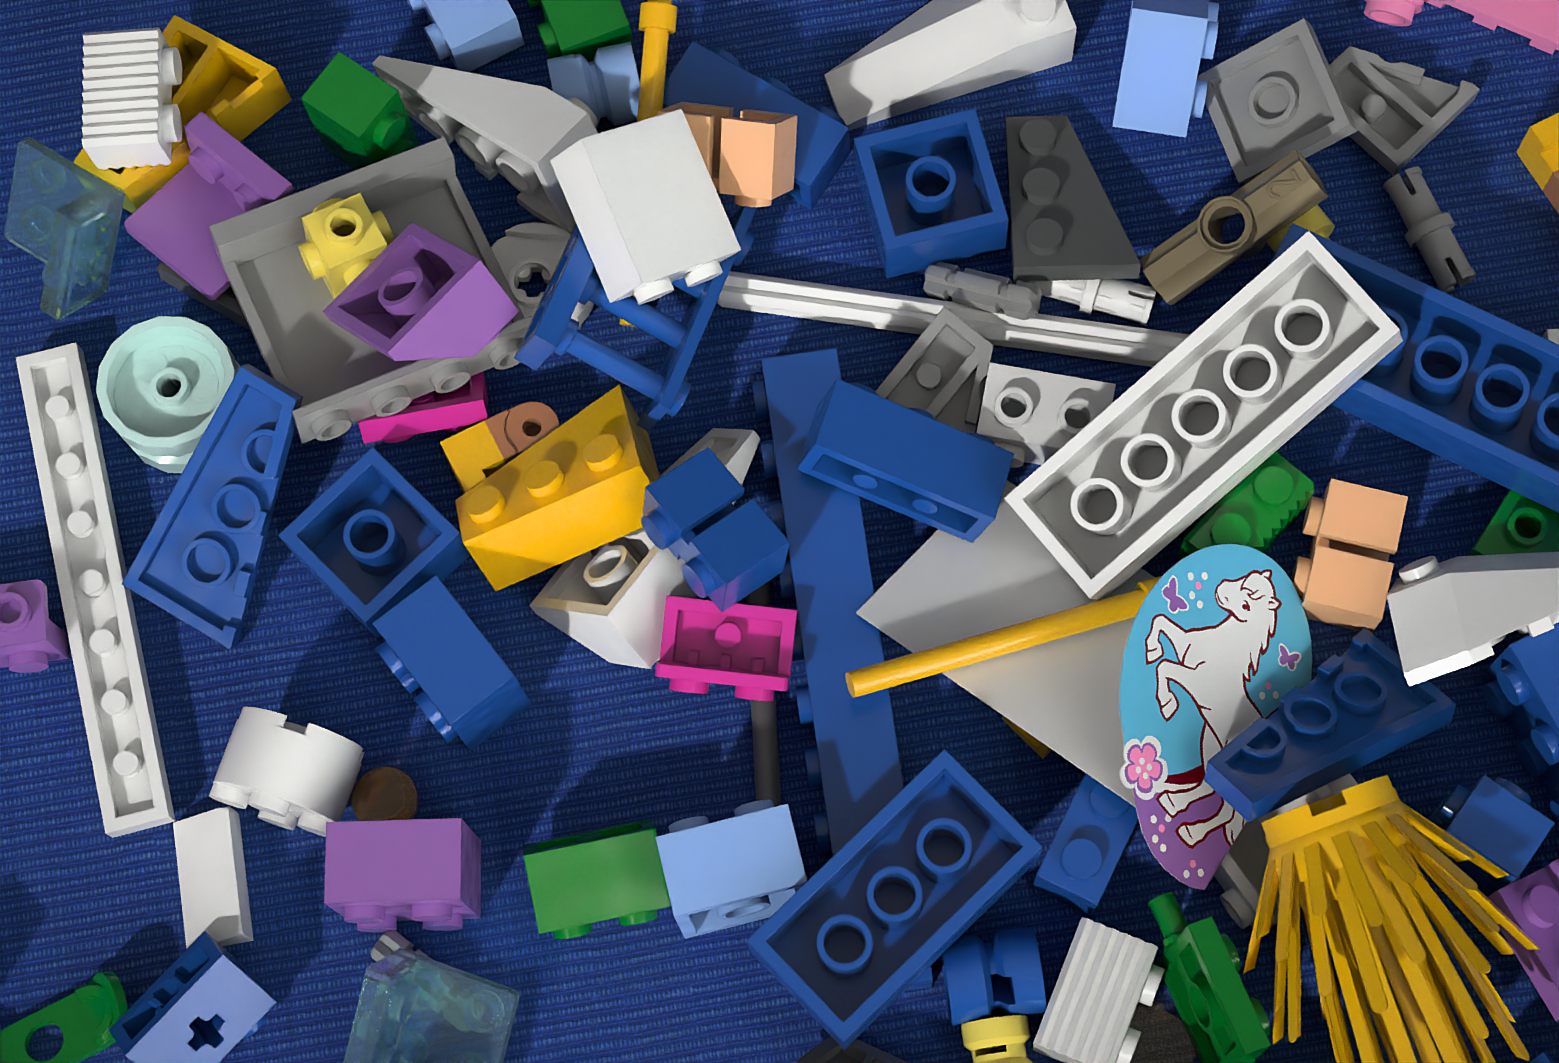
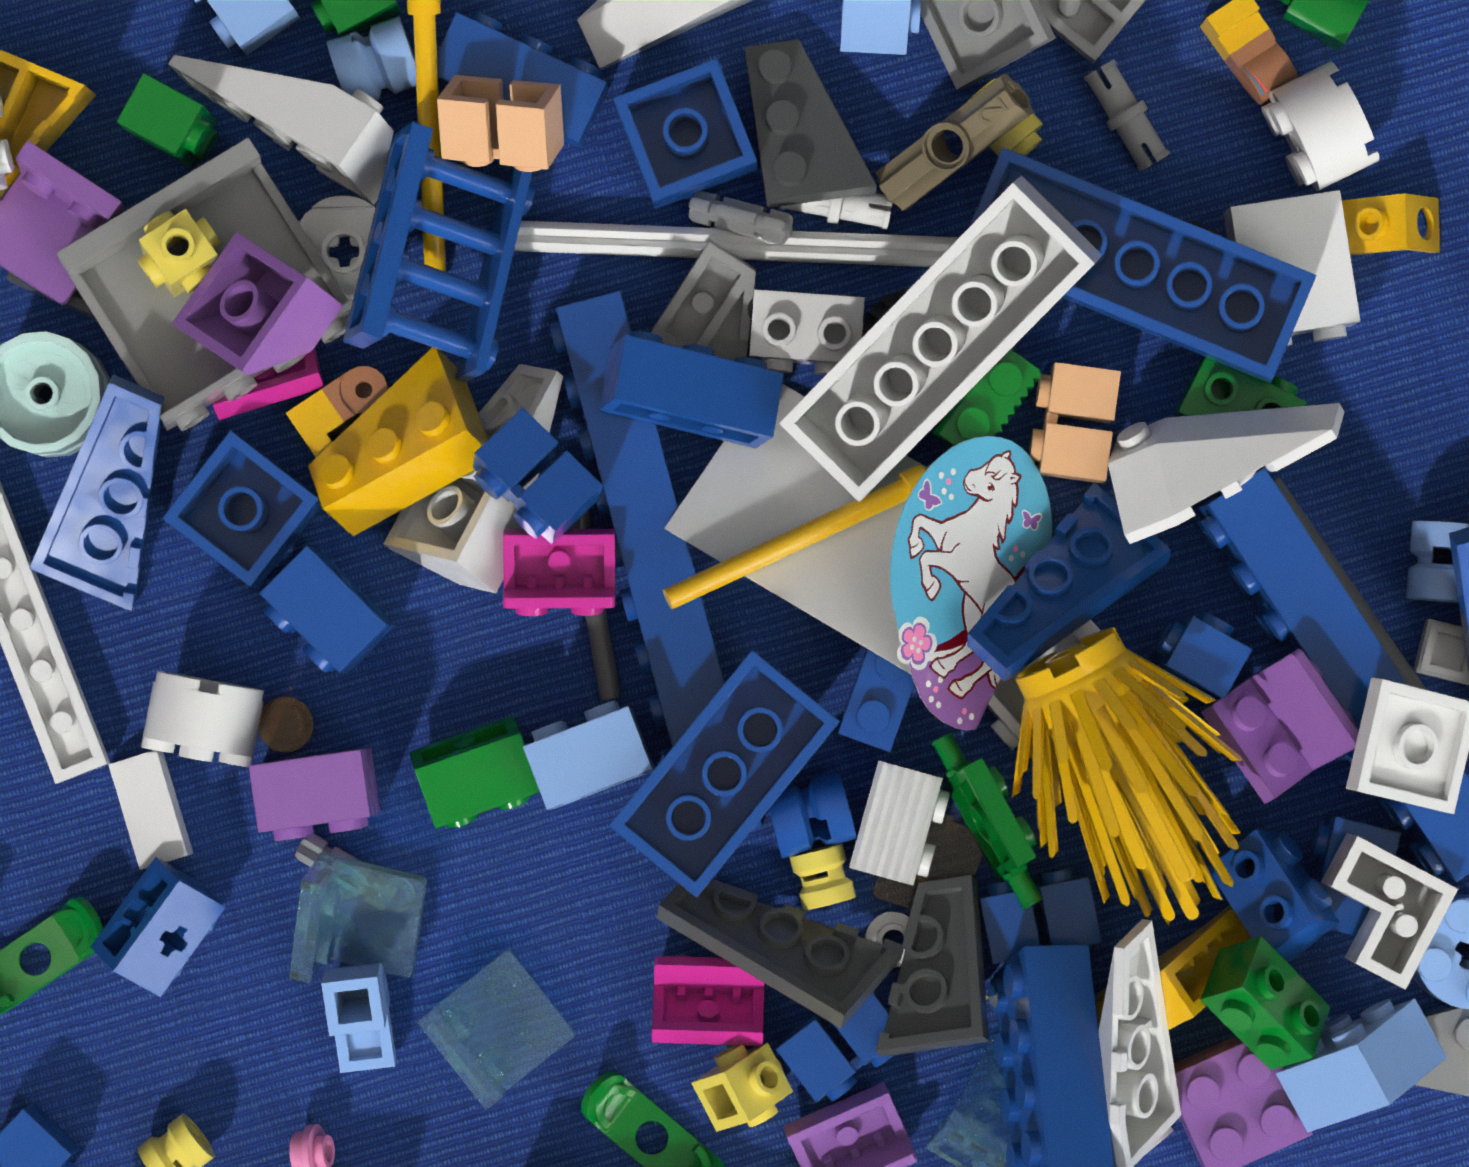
camera: 10 degrees left, 15 degrees up
(646, 207) = (441, 197): white brick -> none

